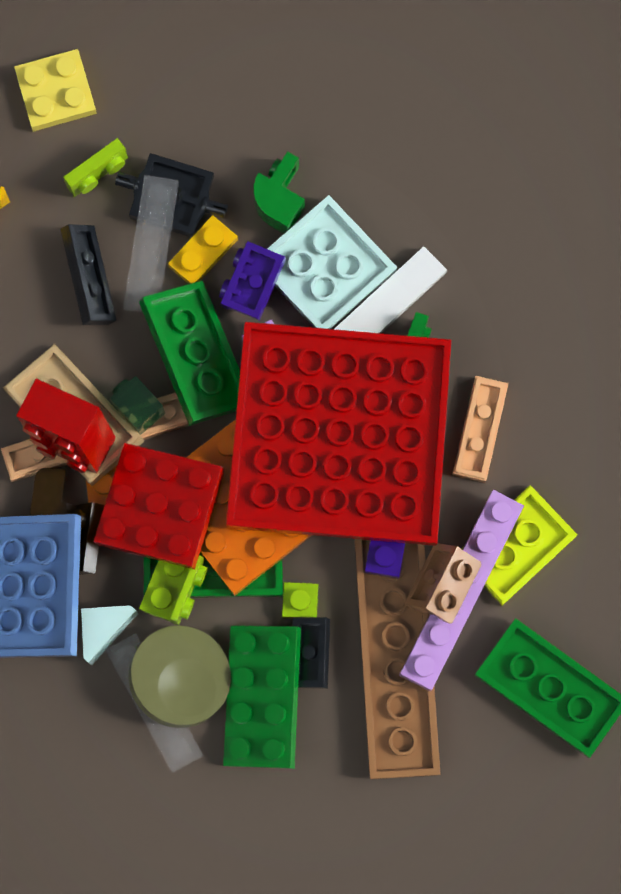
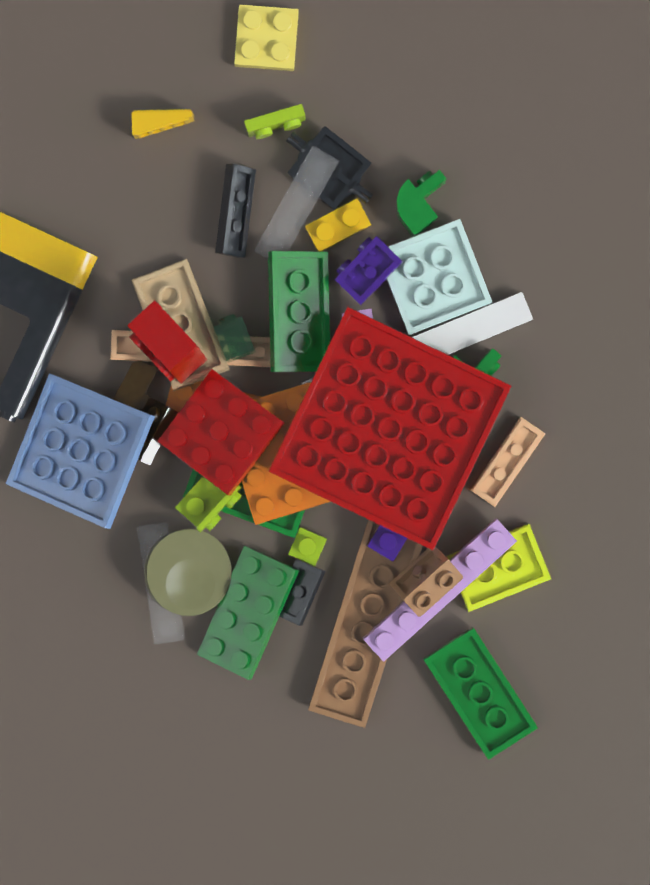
camera: 25 degrees right, 10 degrees up
(102, 627) = (140, 508): light aqua slope -> none

